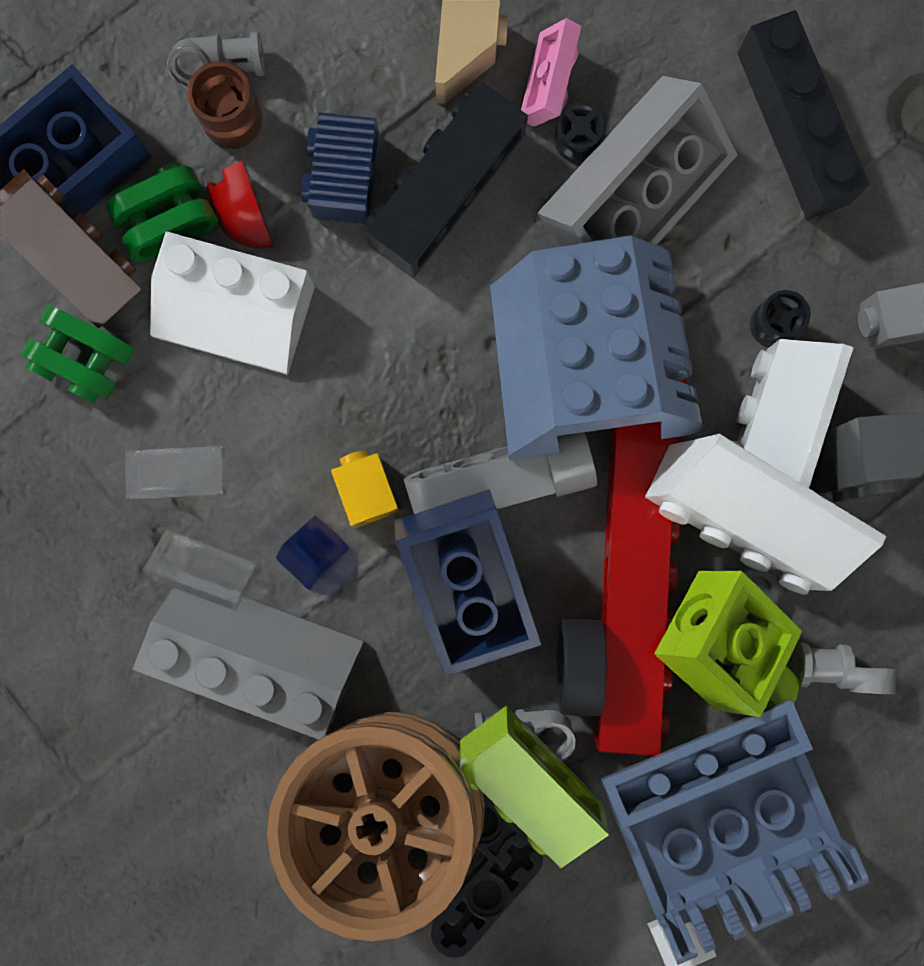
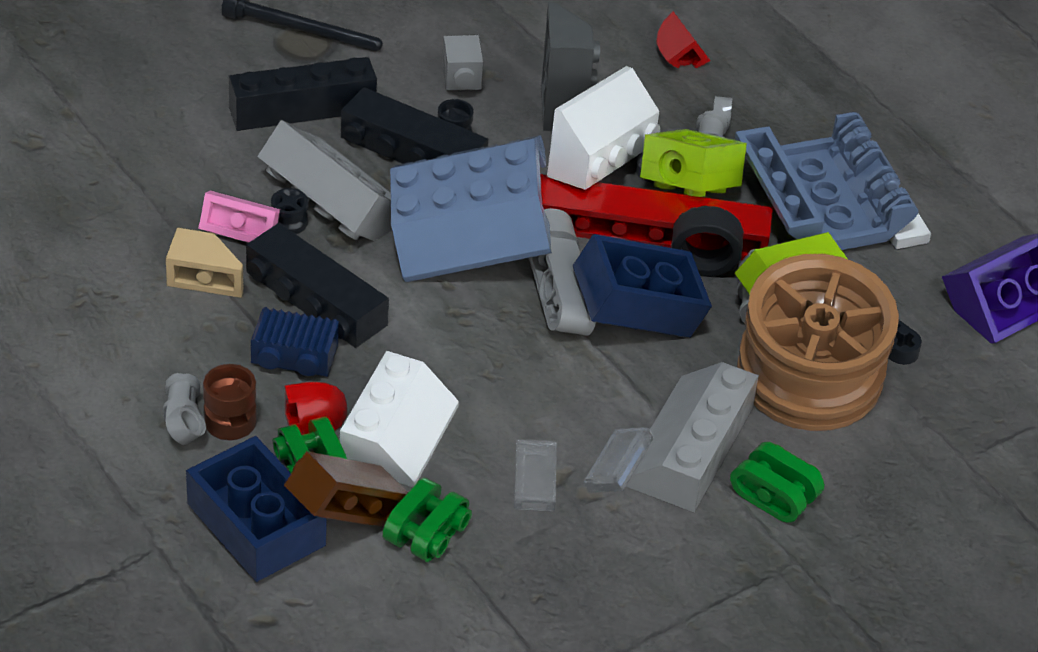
camera: 90 degrees left, 40 degrees down
(183, 797) = (777, 482): none -> green brick
(311, 552) = (610, 400): clear blue slope -> none
(364, 488) = (562, 354): yellow brick -> none
(742, 266) = (402, 130): none -> black brick
(792, 404) = (518, 107): white slope -> none

